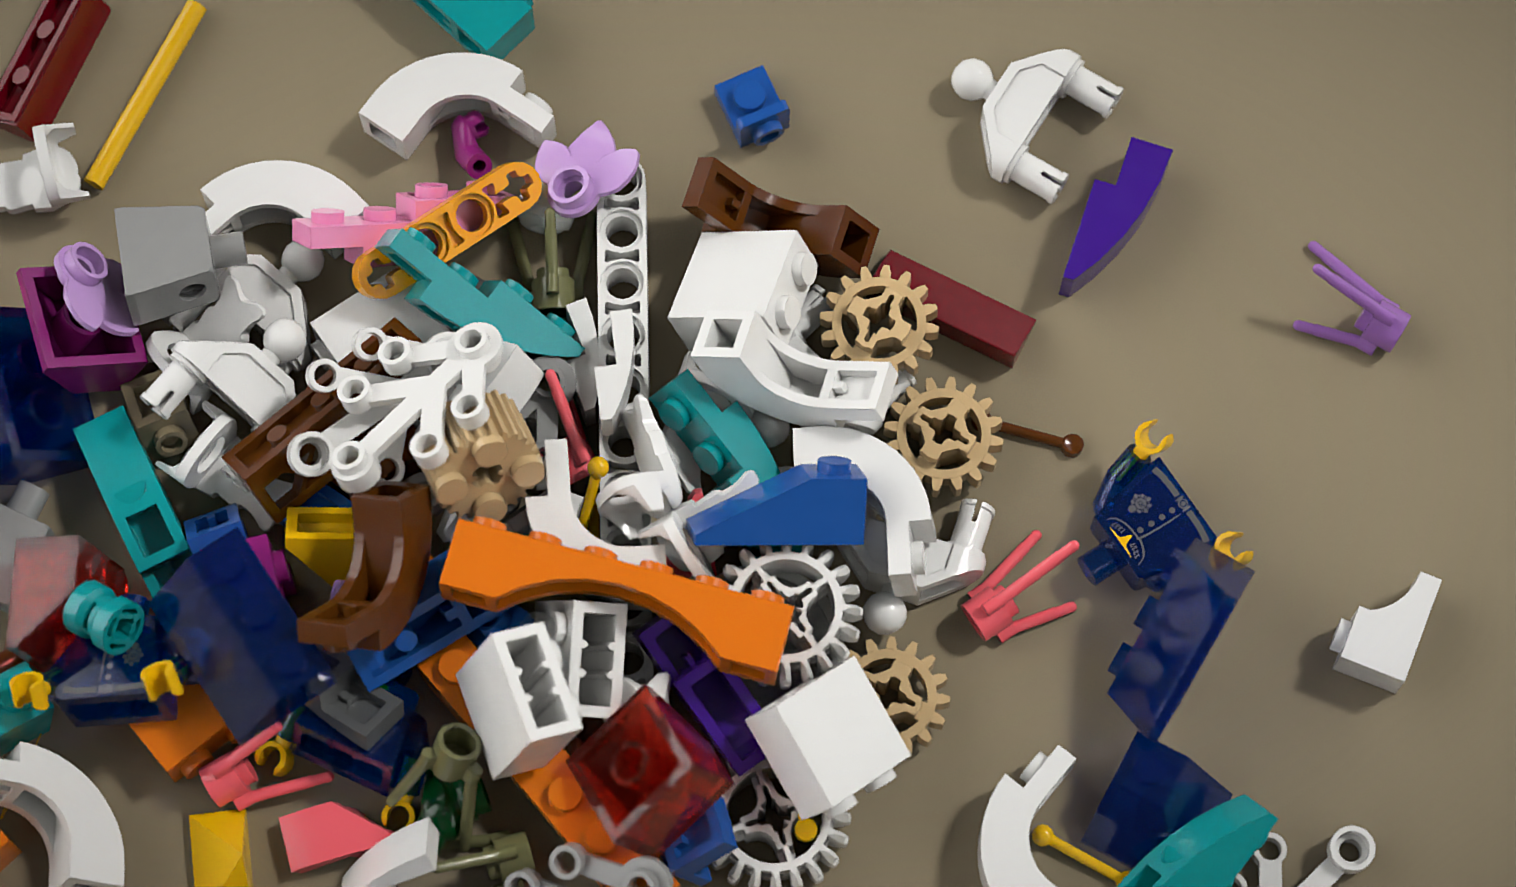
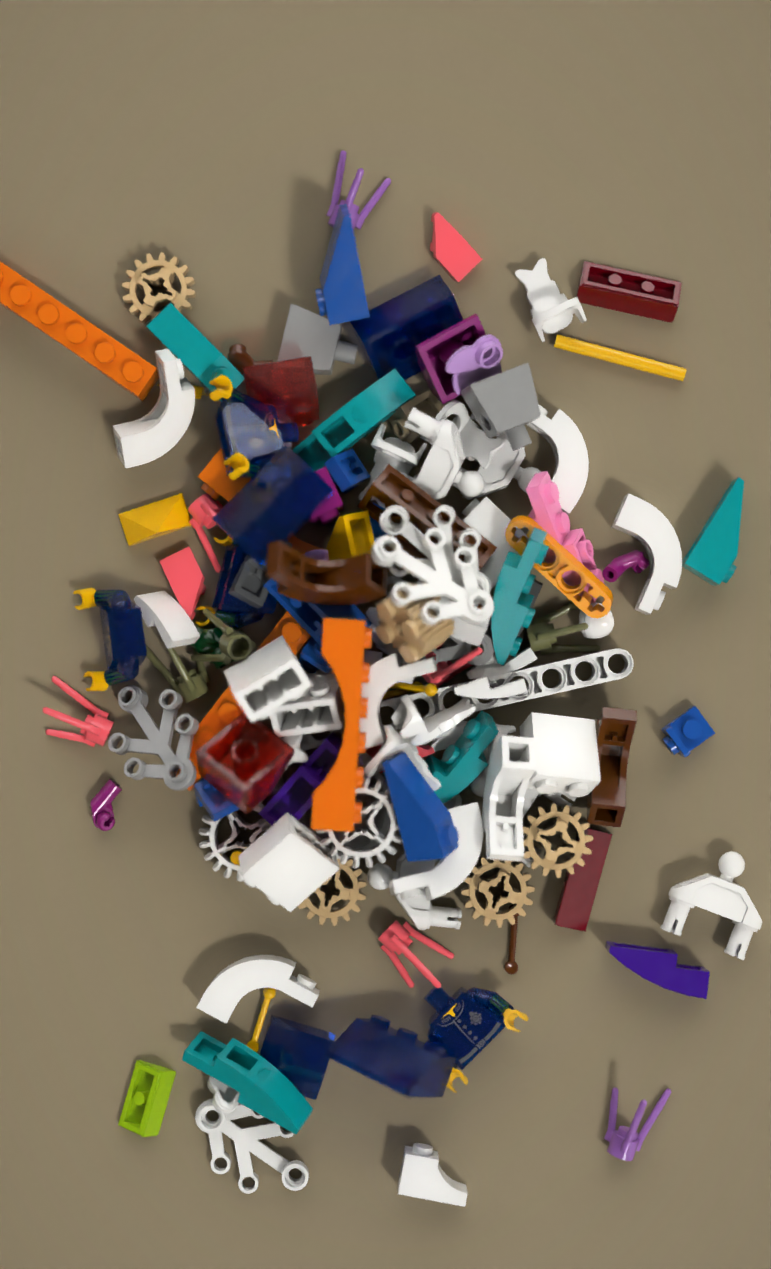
camera: 75 degrees right, 15 degrees up
(106, 619) = (272, 421): teal wheel -> none
(587, 166) = (622, 640): lavender plate -> none

